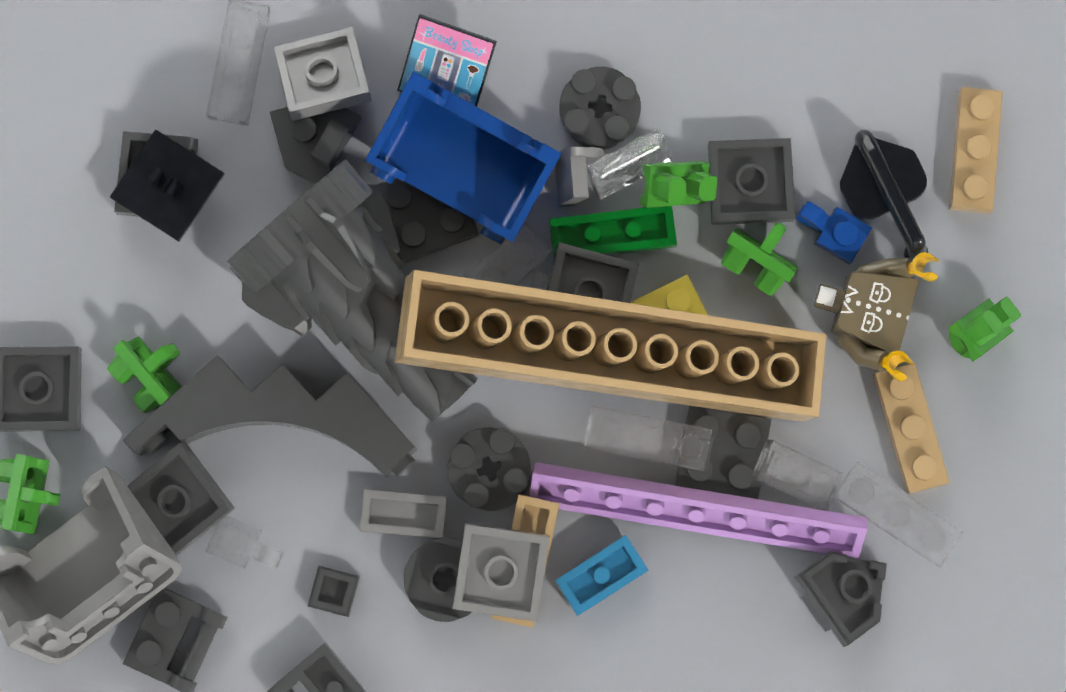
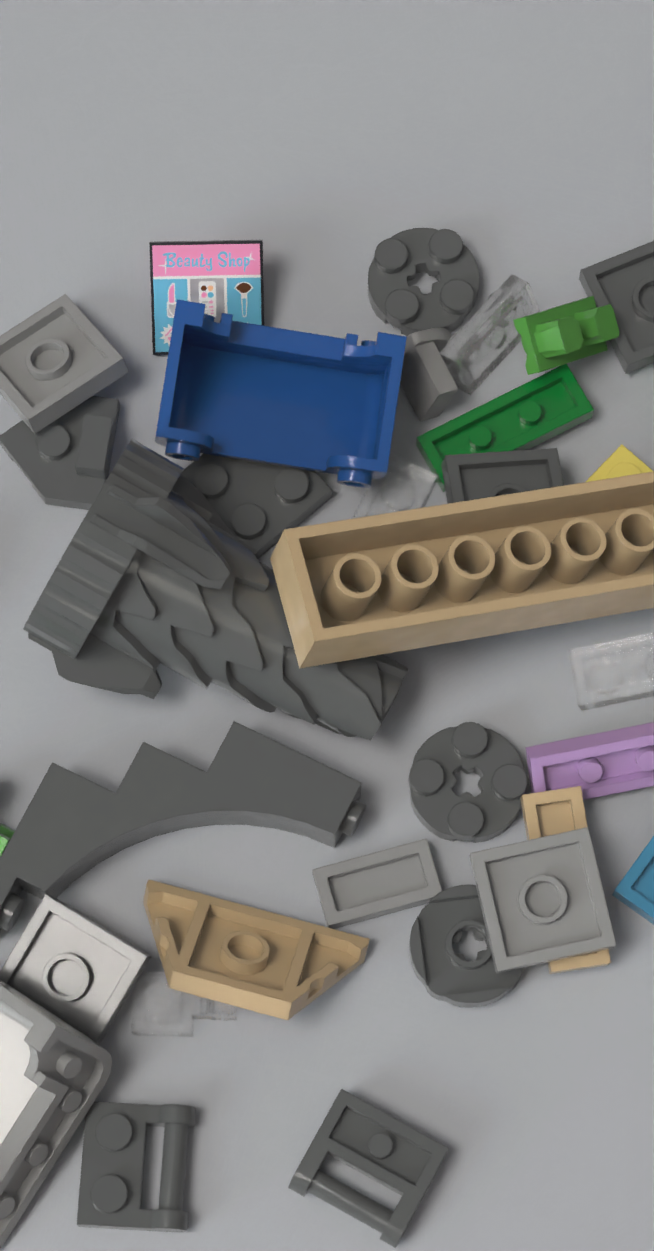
camera: 20 degrees left, 10 degrees down
(296, 530) = (246, 952): none -> tan wing
(333, 591) = (327, 1023): dark grey tile -> none

